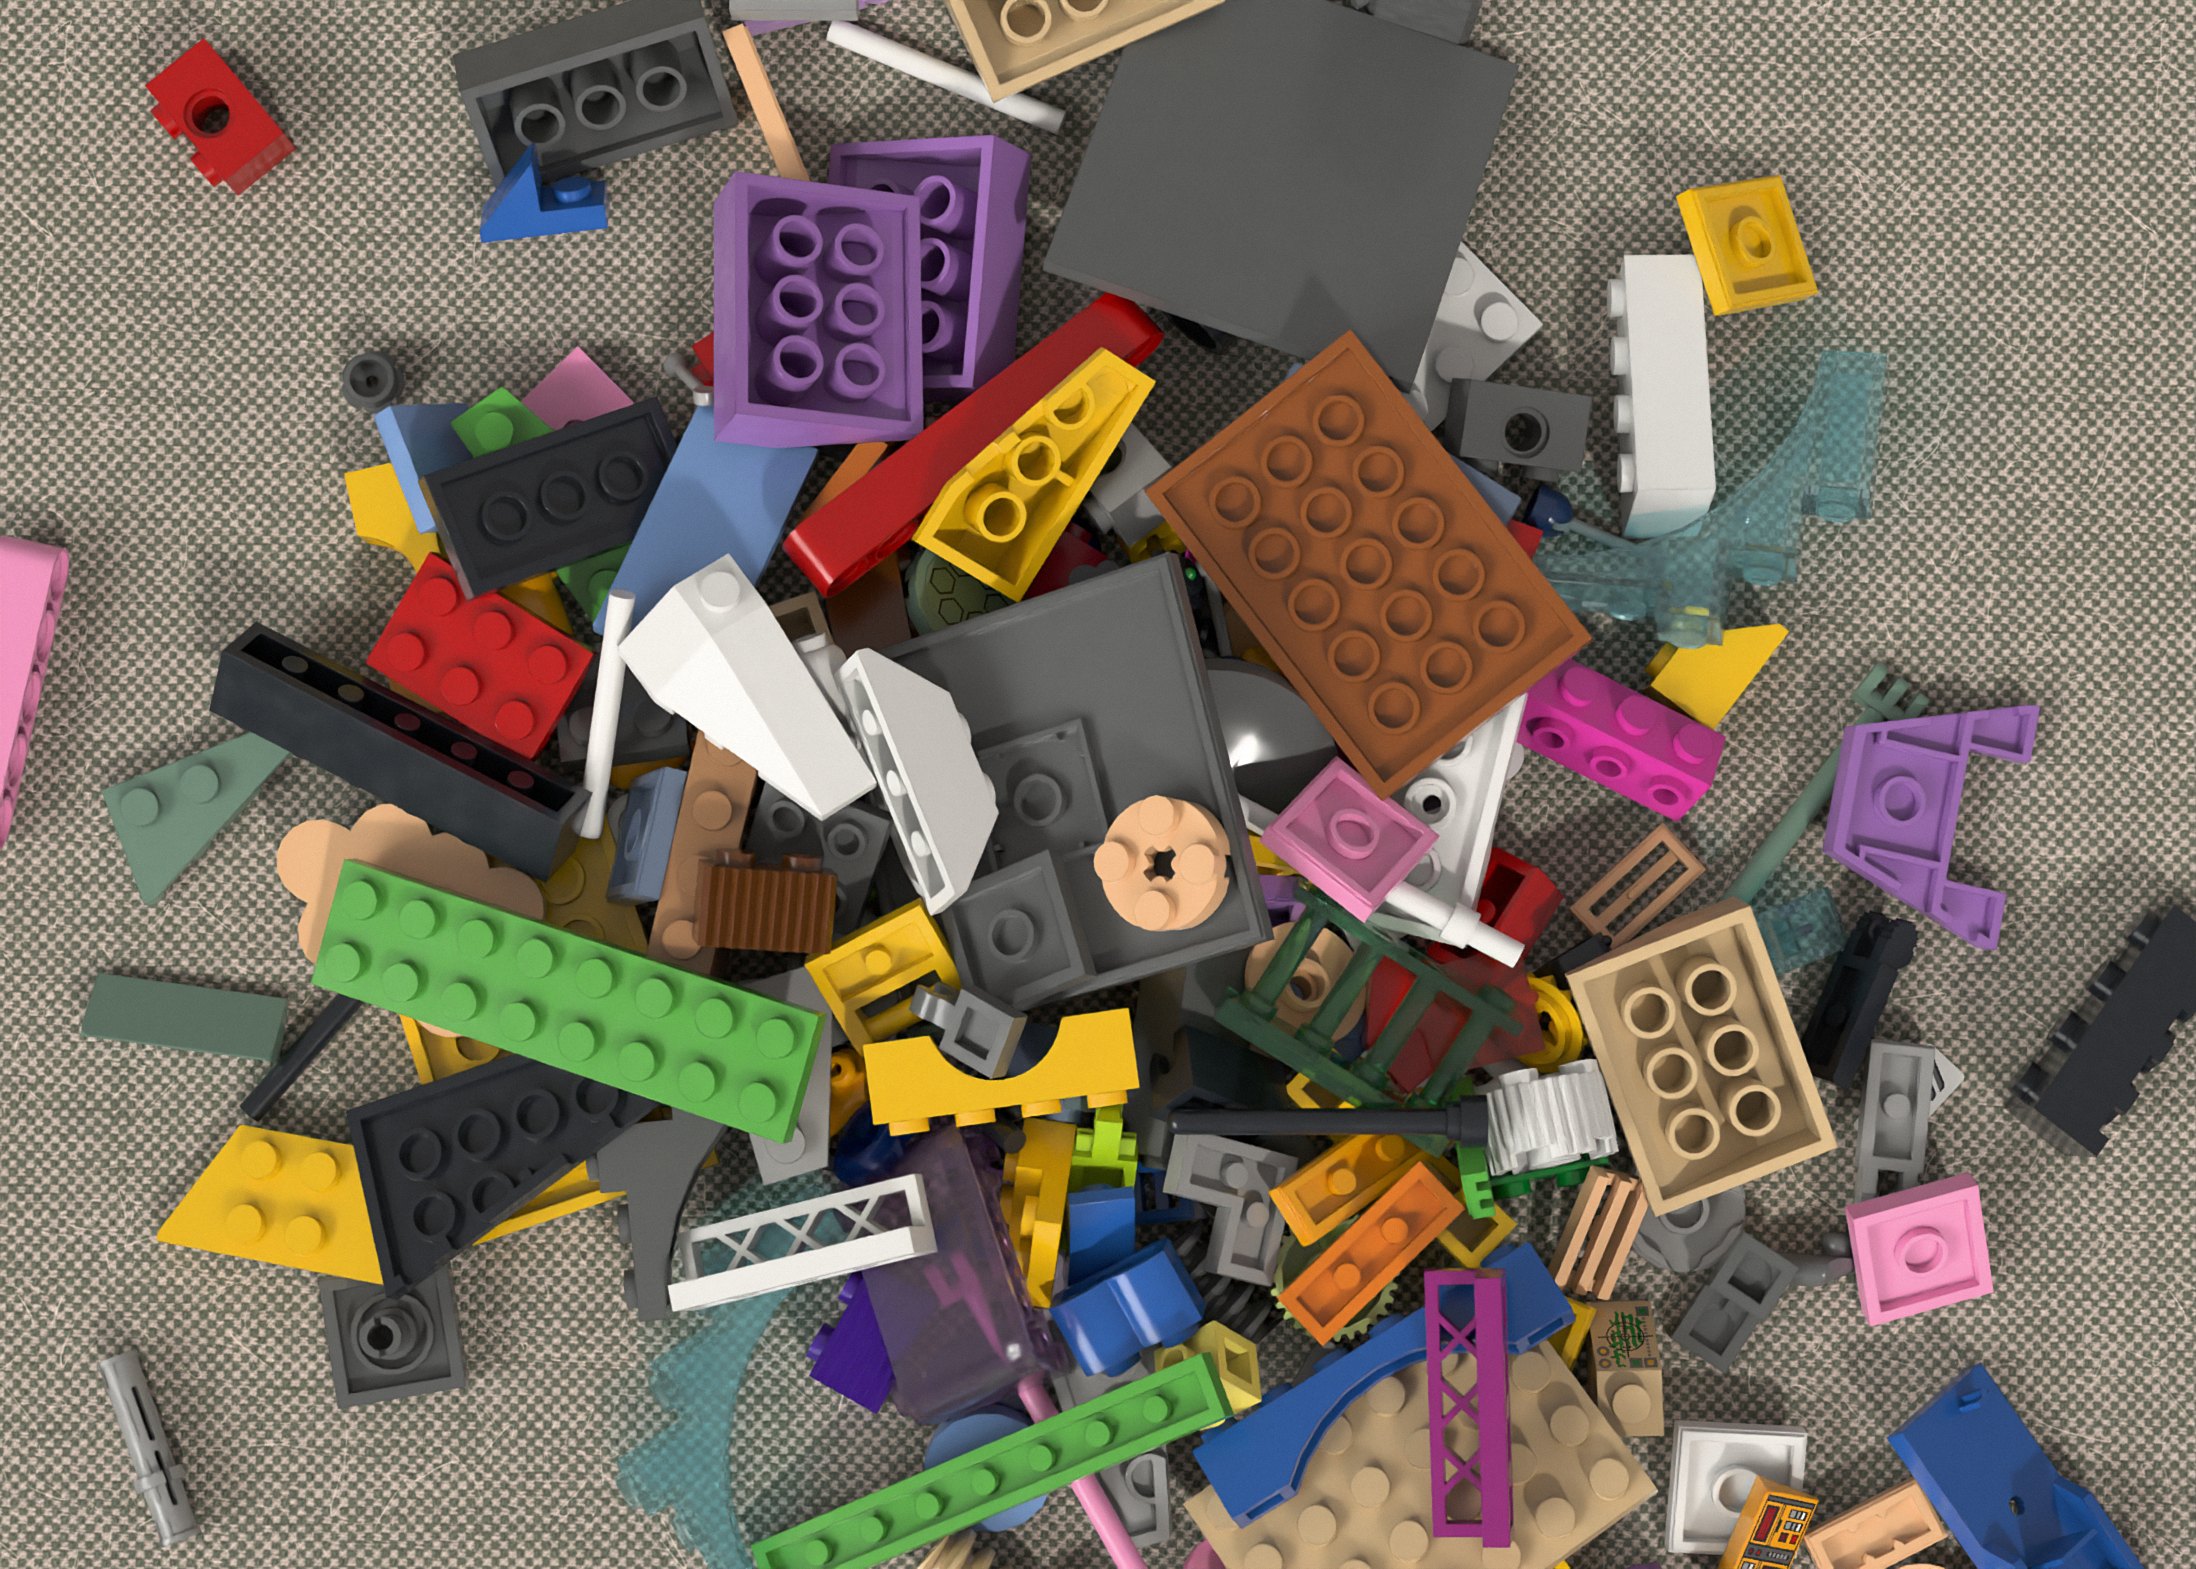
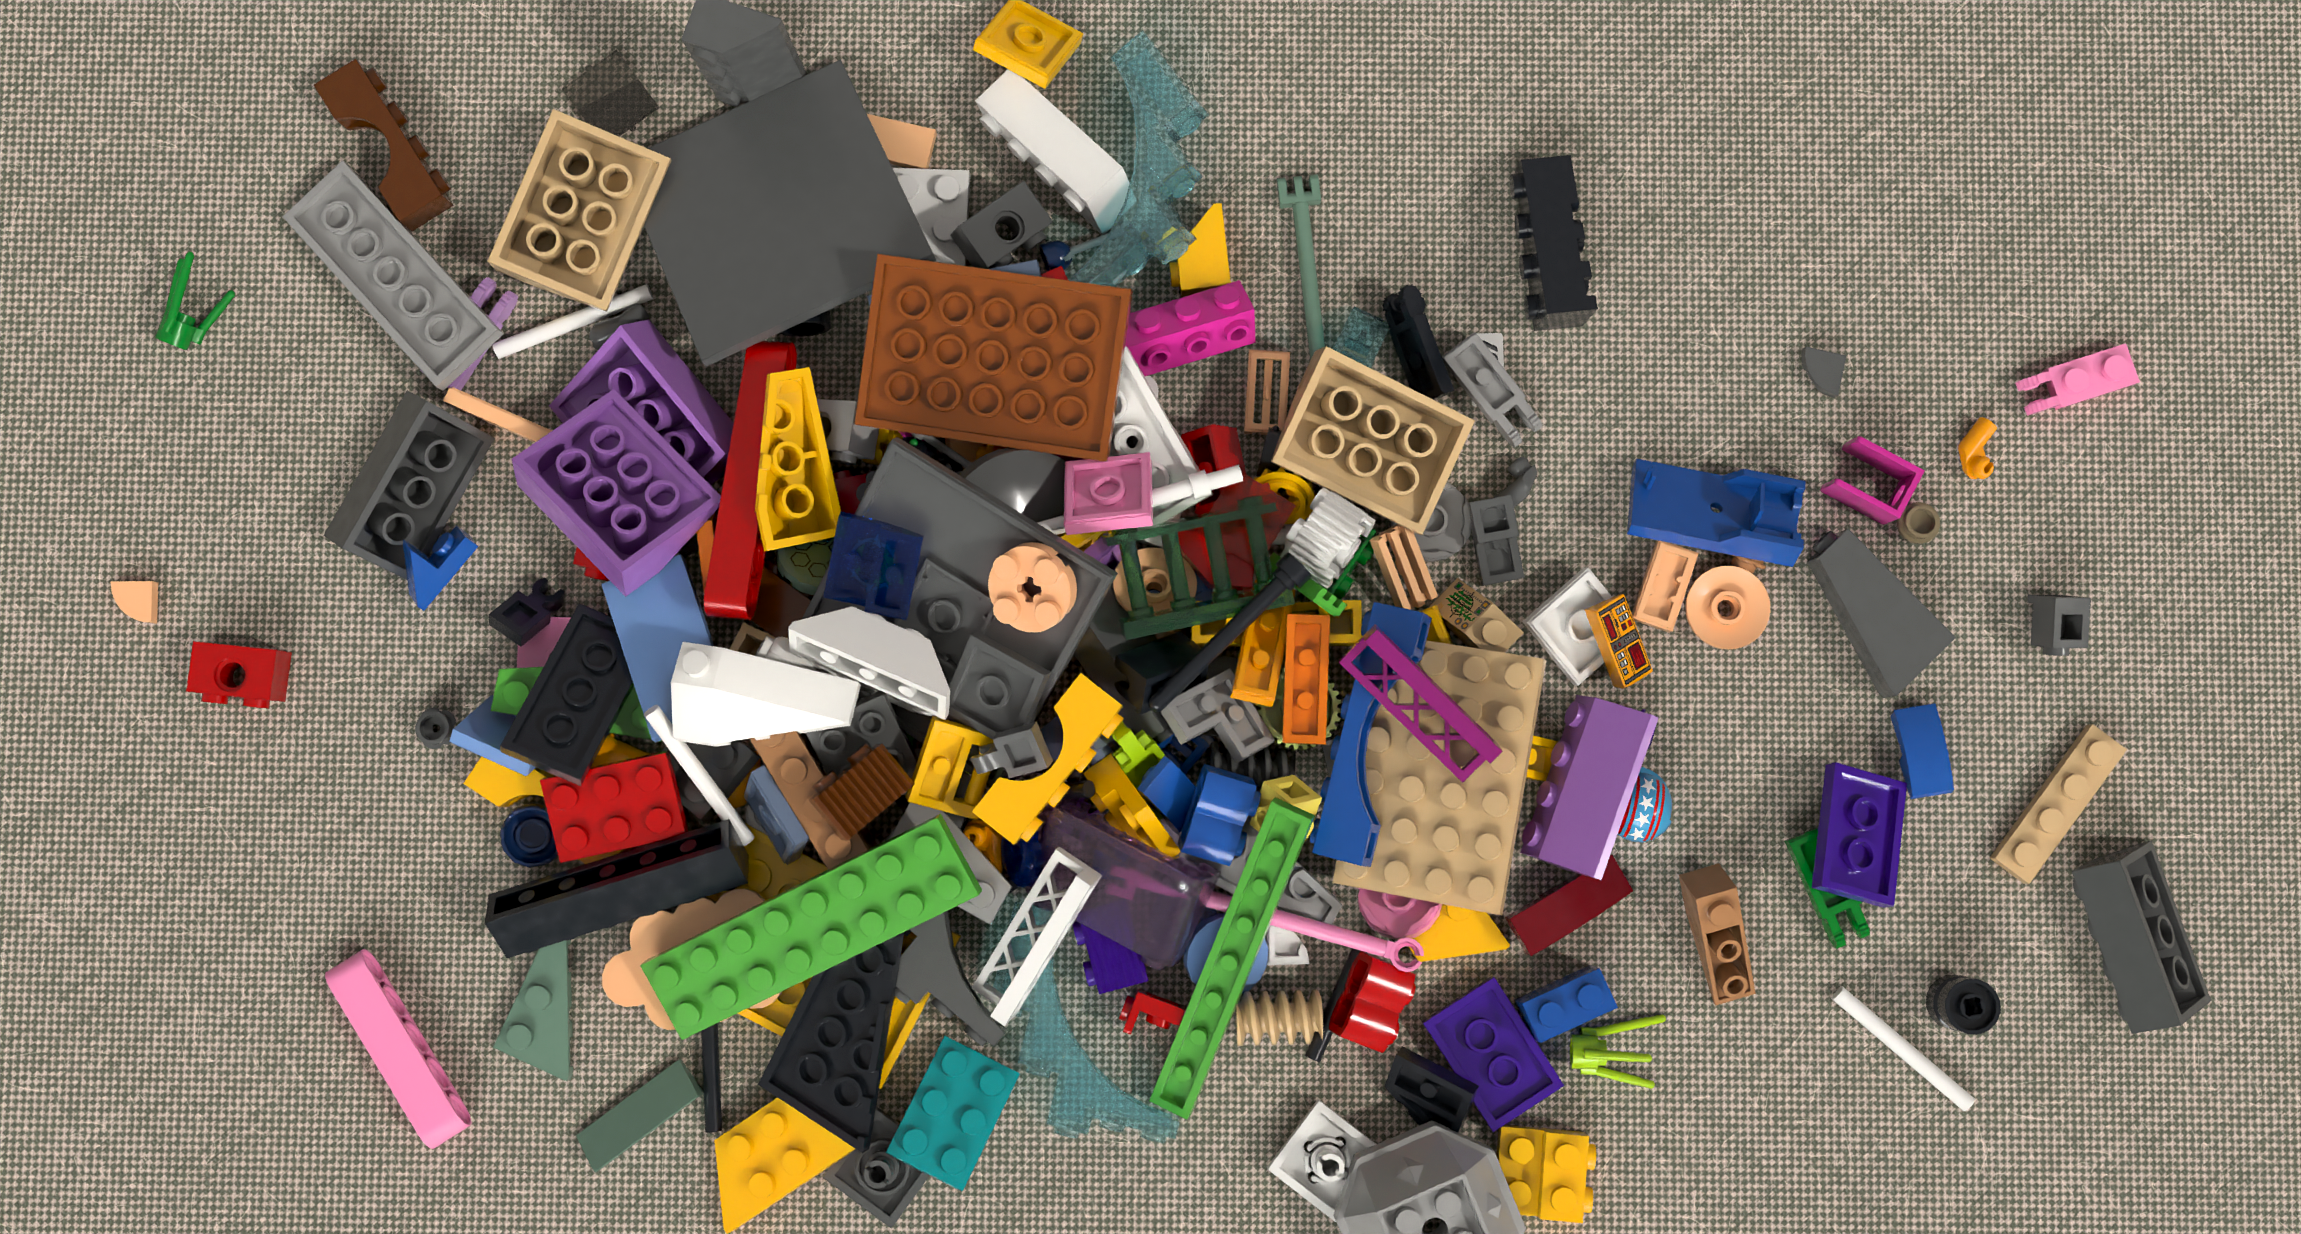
camera: 40 degrees left, 0 degrees up
(359, 599) = (528, 836): none -> dark blue hair
(524, 1349) = (953, 1113): none -> teal plate
(583, 353) = (524, 615): none -> black plate
(677, 367) = (576, 580): light grey hinge -> none
(857, 1457) = (1158, 1010): none -> red bracket
(972, 120) = (603, 330): none -> dark grey arm
(1015, 670) = (873, 565): none -> clear blue slope
(1061, 1524) = (1285, 947): none -> white tile
(1501, 225) = (904, 142): none -> light nougat tile
(1901, 804) = (1352, 236): medium lavender wing -> none
(1919, 1249) = (1557, 432): bright pink plate -> none

